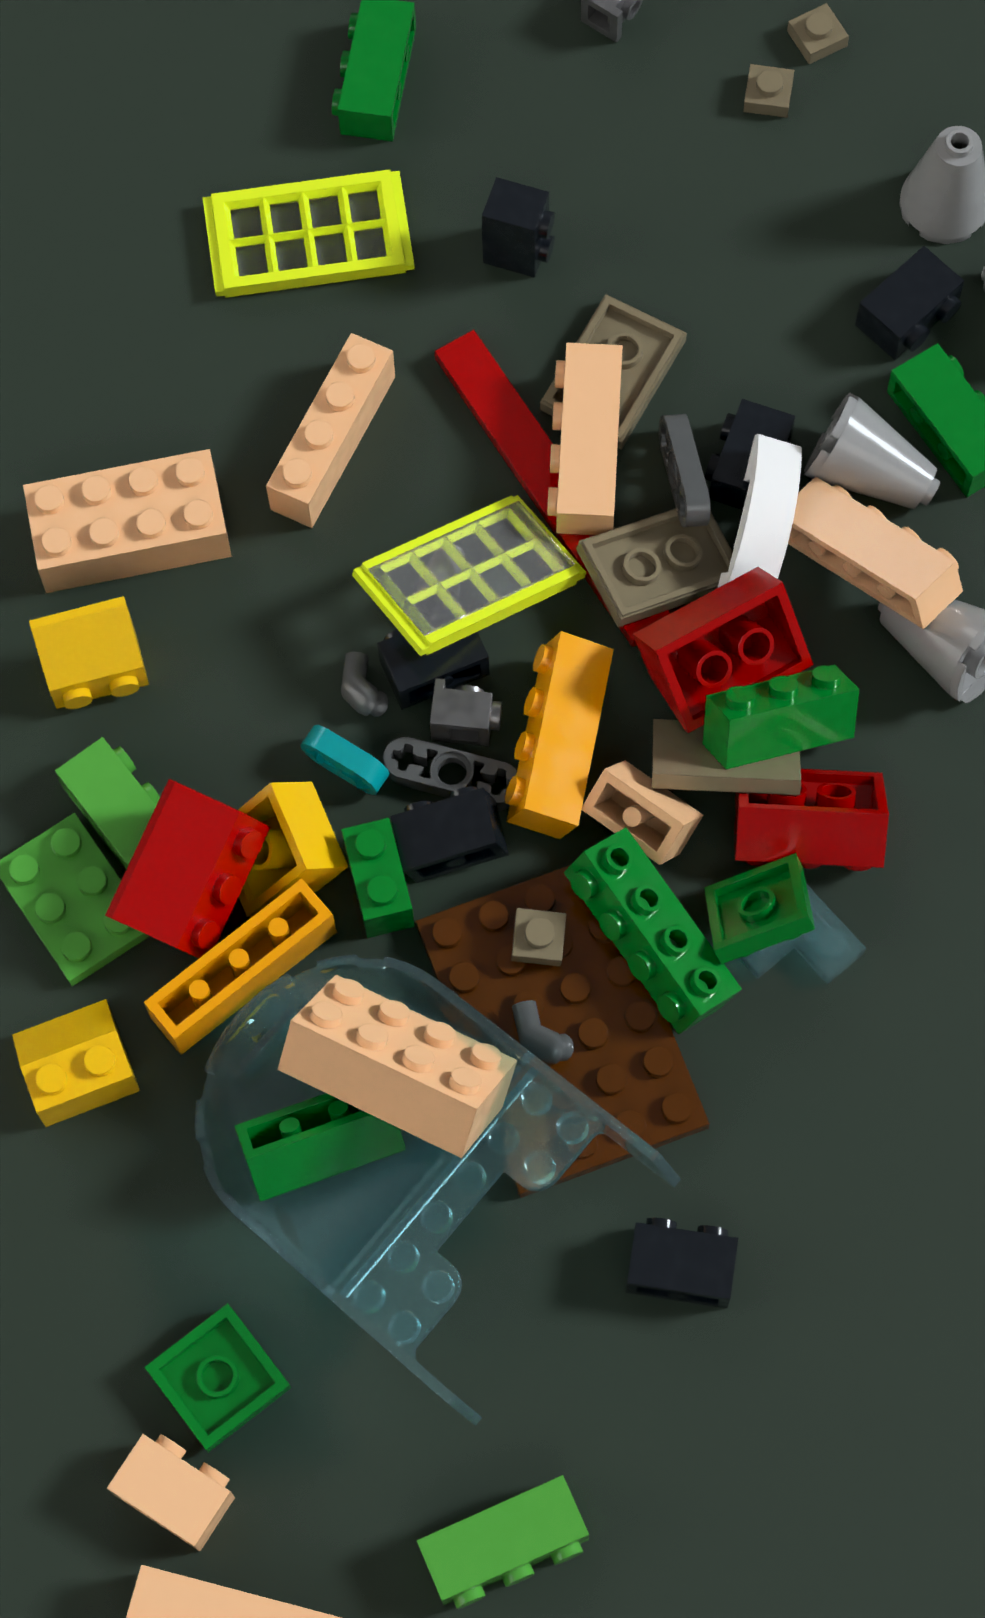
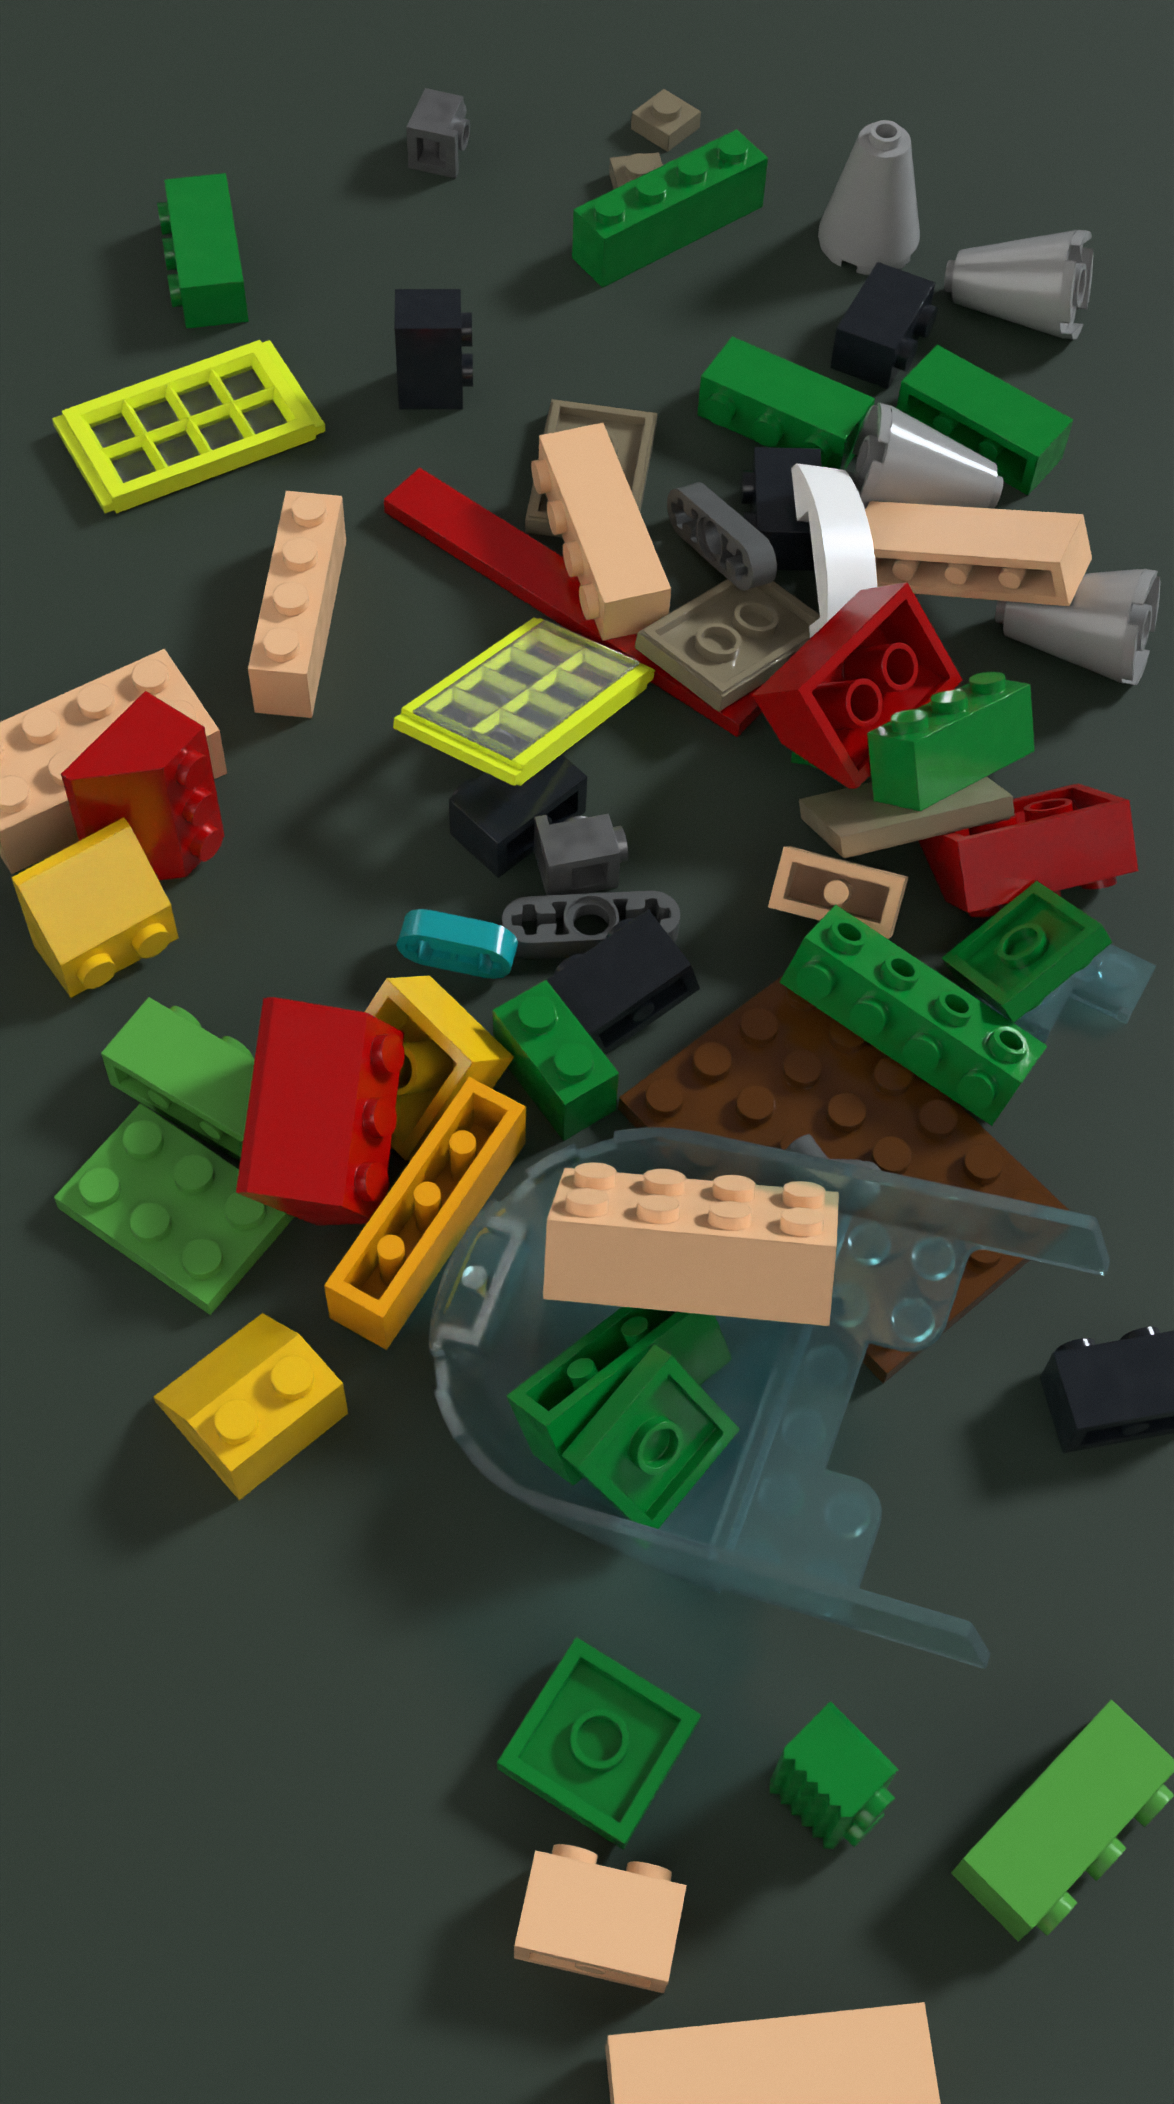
camera: 25 degrees left, 10 degrees down
(155, 574) = (156, 776): none -> red slope
(322, 1191) = (651, 1440): none -> green plate
(352, 1459) = (834, 1779): none -> green brick
(358, 690) = (443, 867): dark grey arm -> none
(538, 937) = (780, 1064): dark tan plate -> none
(558, 735) = (705, 841): light orange brick -> none
(777, 133) = (668, 208): none -> green brick
(790, 359) = (781, 403): none -> green brick

